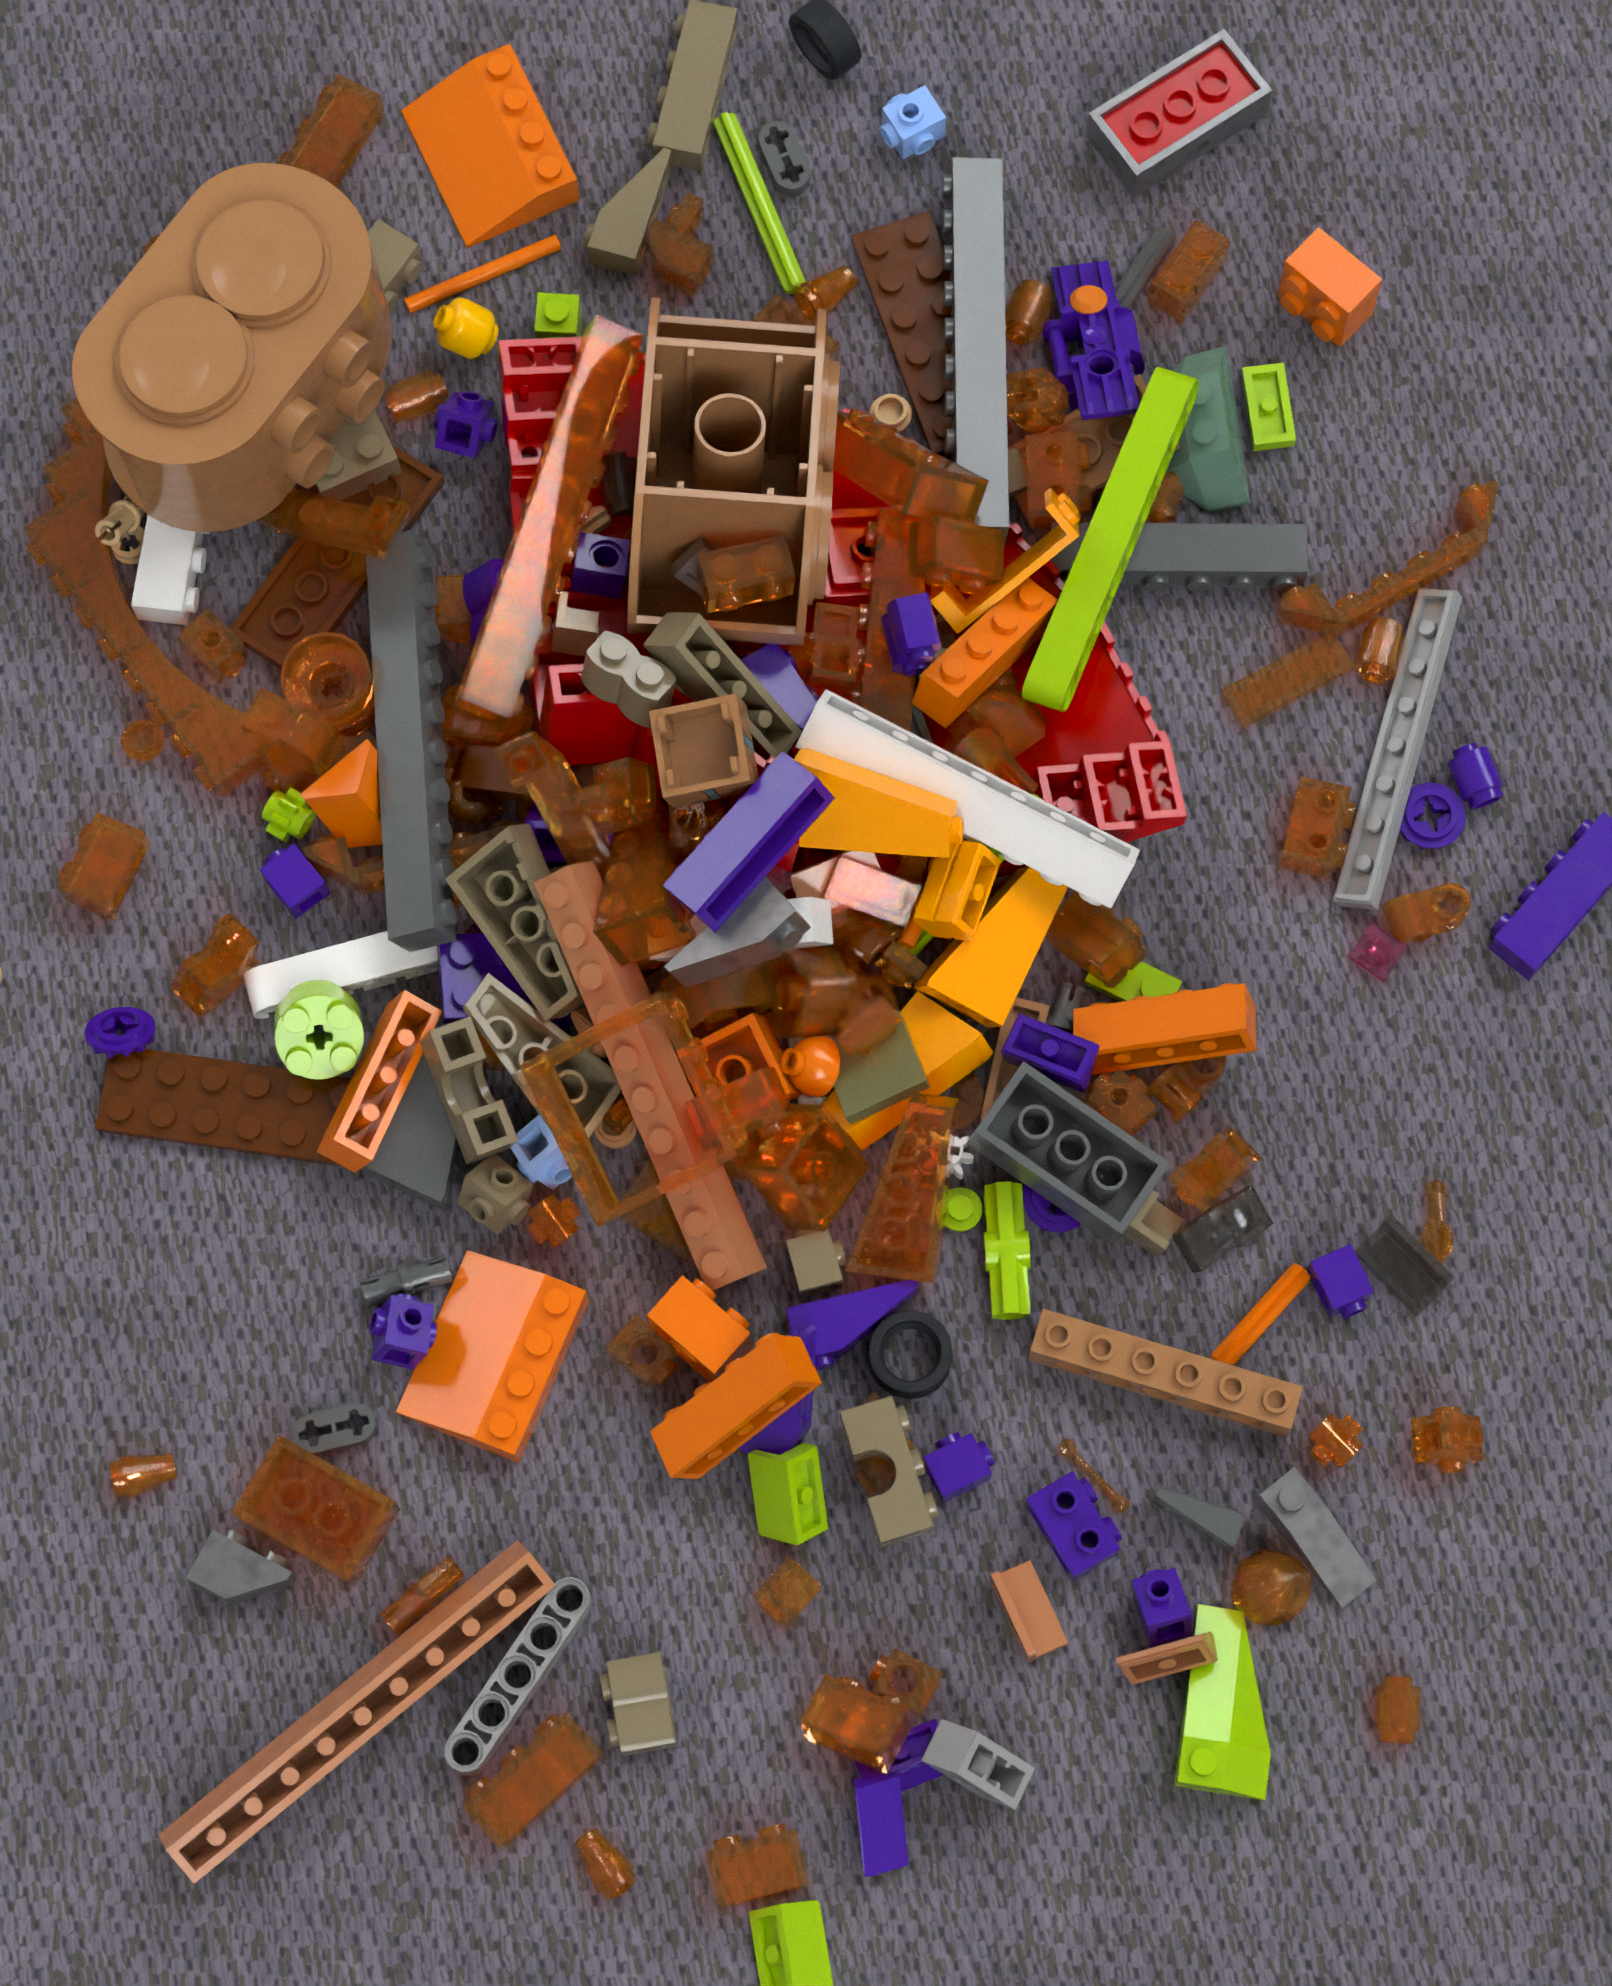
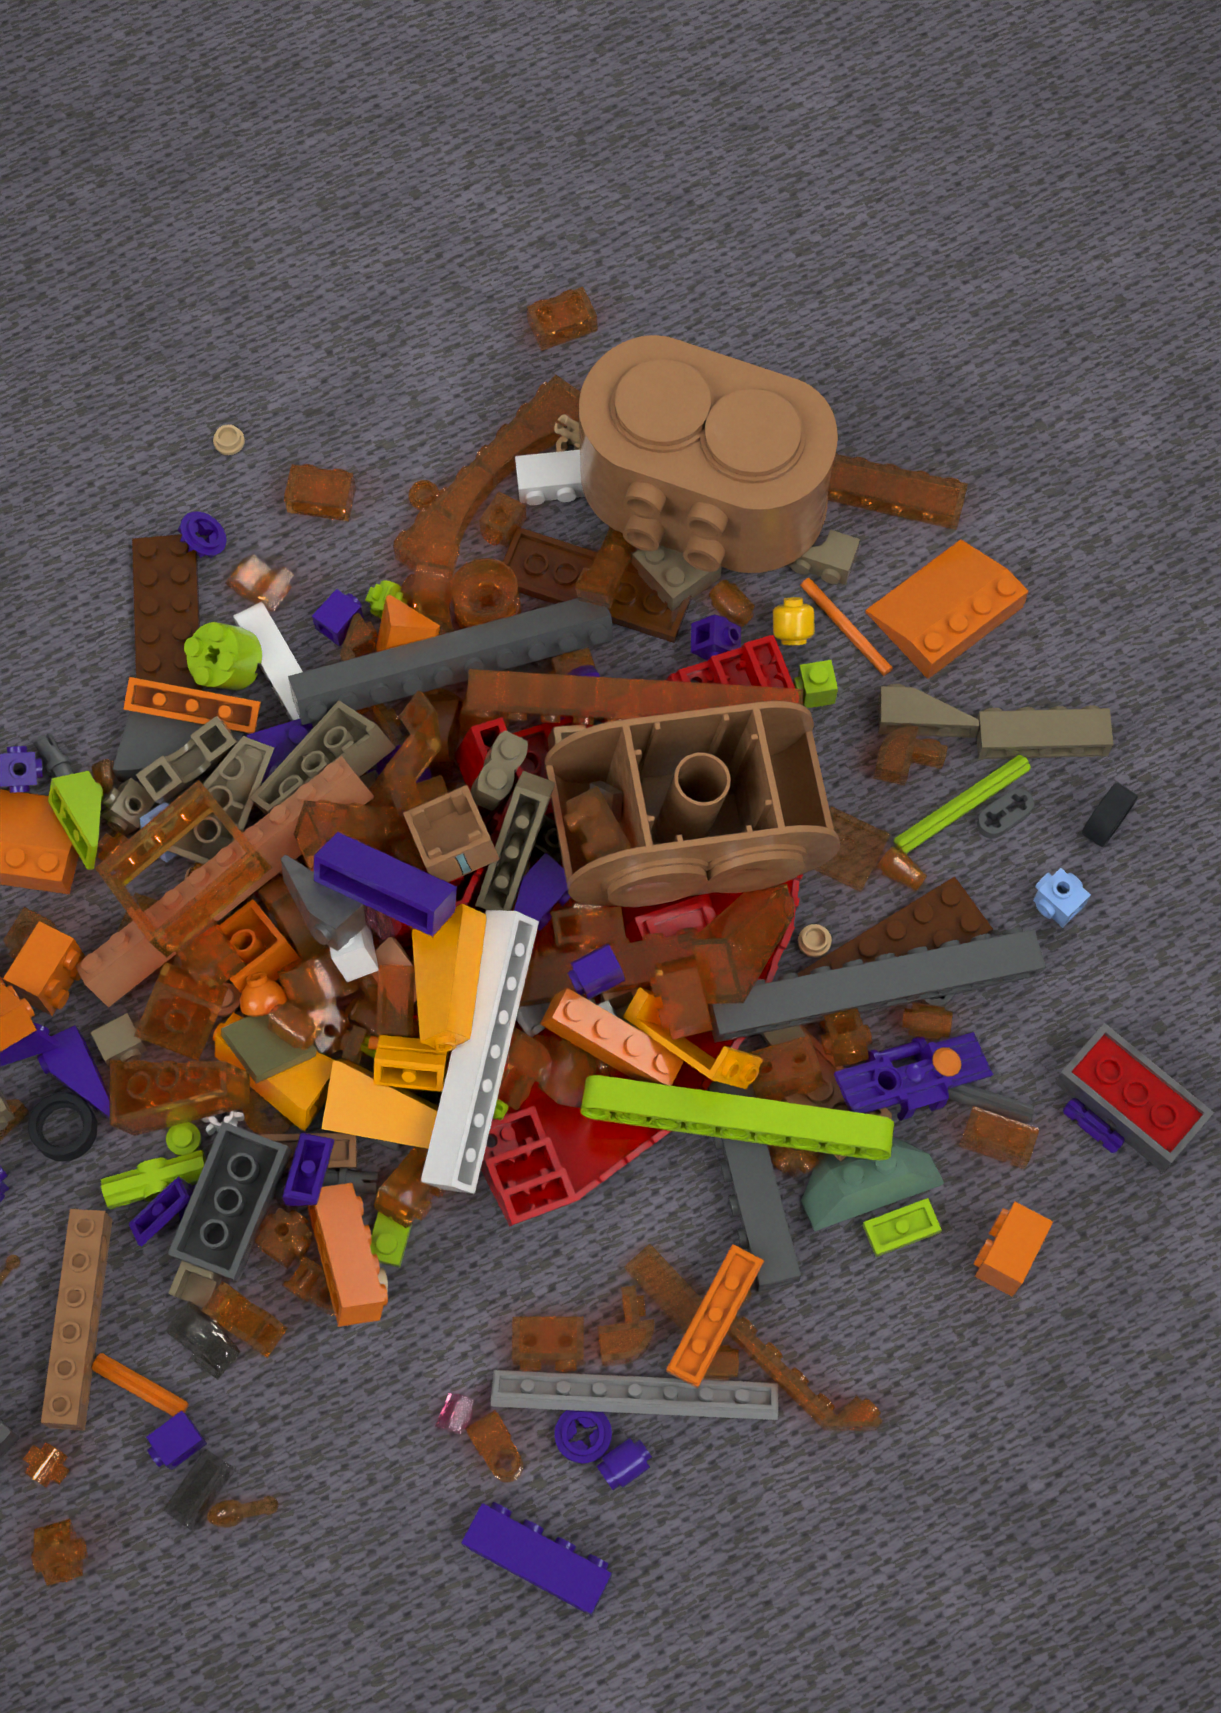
camera: 75 degrees right, 5 degrees down
(441, 1222) = (104, 774): none -> clear orange slope
(495, 1250) = (77, 805): none -> lime slope
(1056, 1243) = (161, 1210): none -> dark purple slope
(1195, 170) = (1093, 1125): none -> dark purple axle
(1332, 732) = (628, 1340): none -> clear orange brick
(1335, 627) = (715, 1316): none -> orange tile

